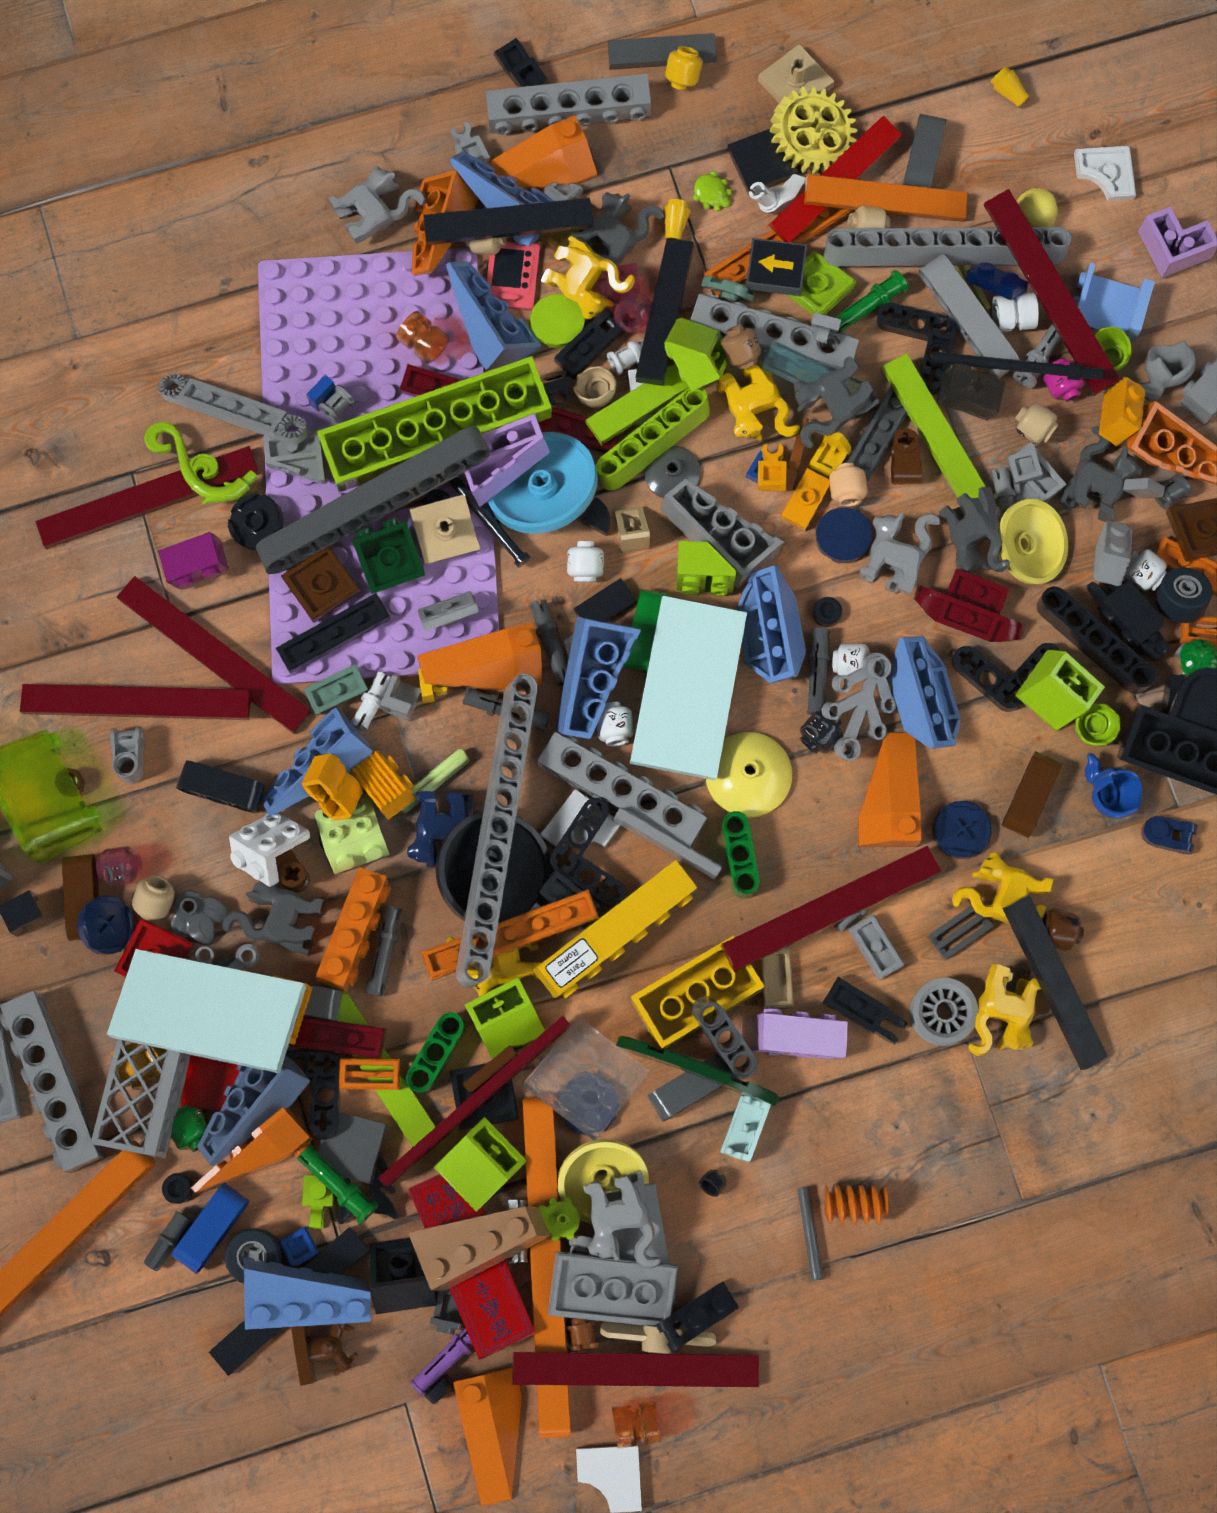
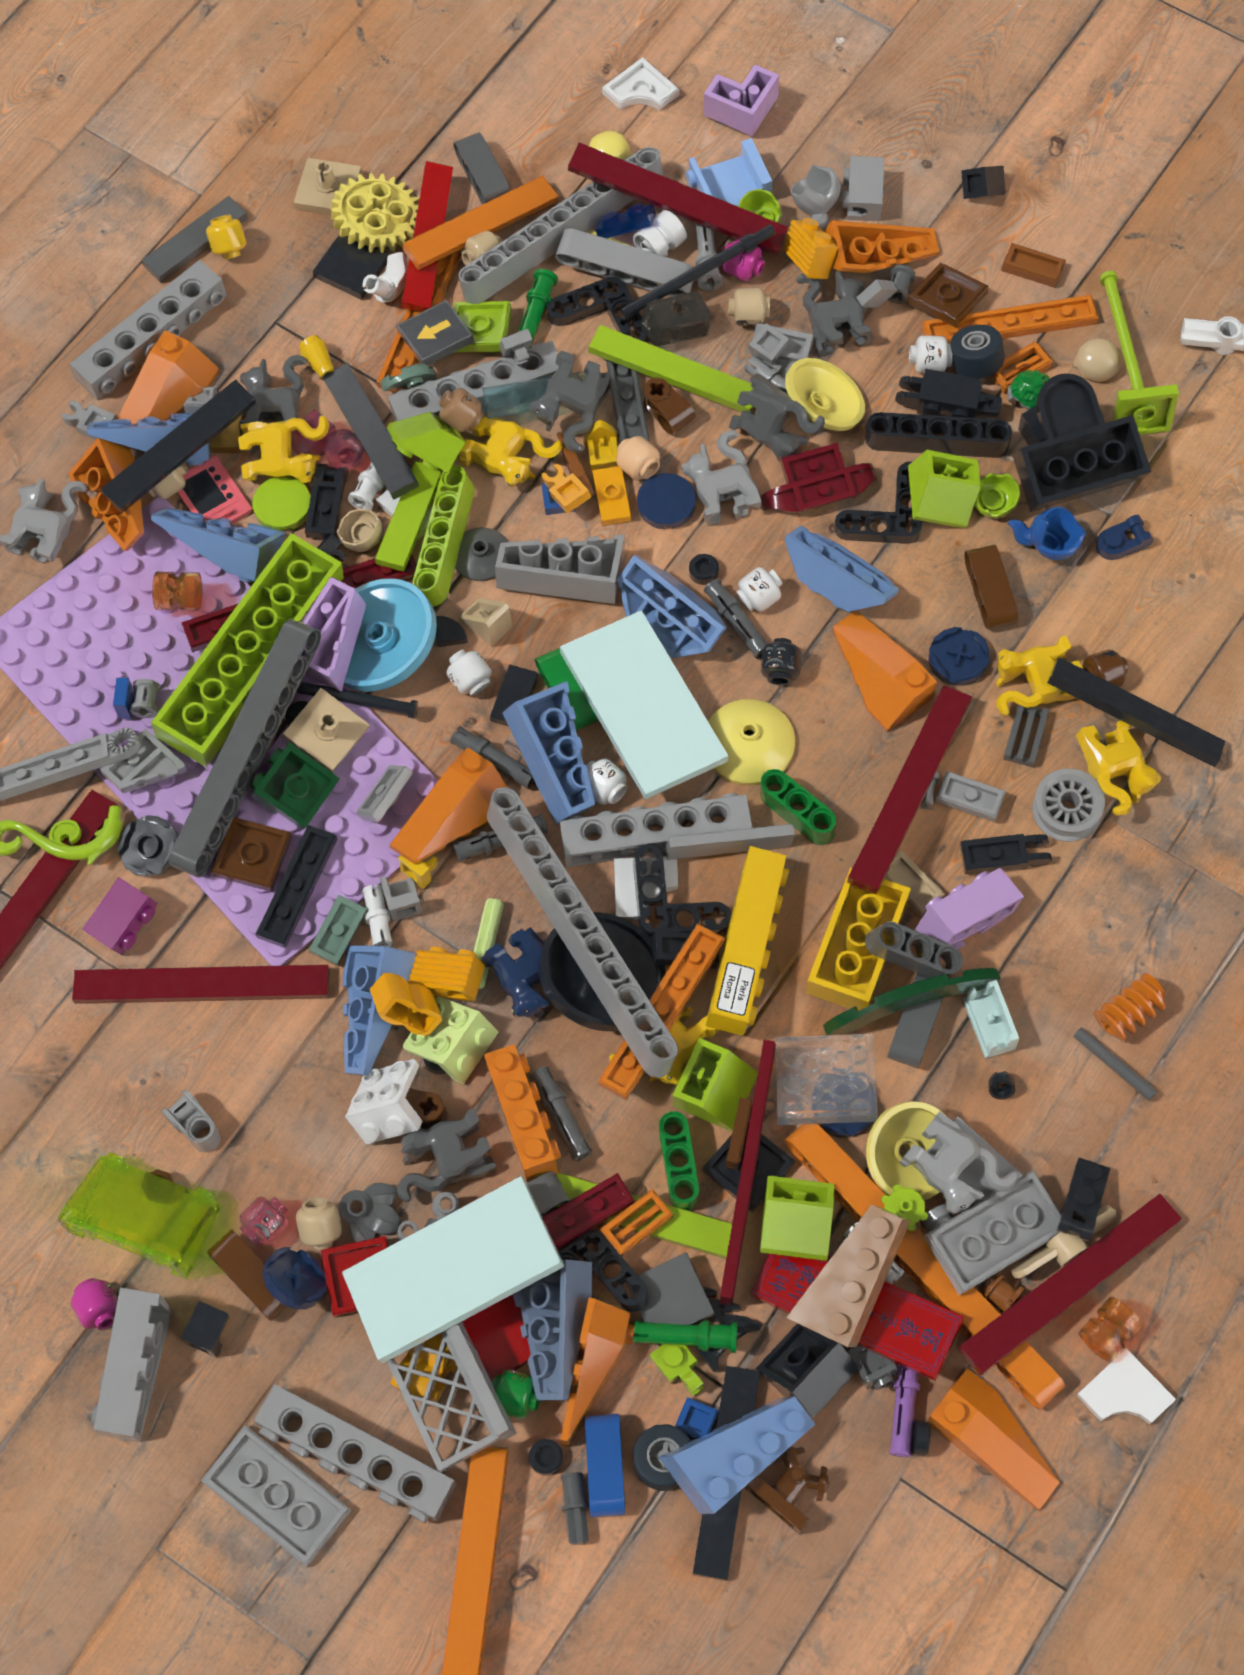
camera: 35 degrees left, 10 degrees down
(135, 702) = (162, 1074): dark red tile -> none
(220, 786) = (300, 1086): black beam -> none
(519, 66) = (79, 330): black slope -> none
(703, 570) = (574, 604): lime slope -> none
(712, 191) = (329, 316): lime piece -> none
(863, 703) = (785, 580): light grey plant -> none
(1009, 86) = (508, 76): yellow cone -> none
(1113, 553) = (895, 357): light grey brick -> none

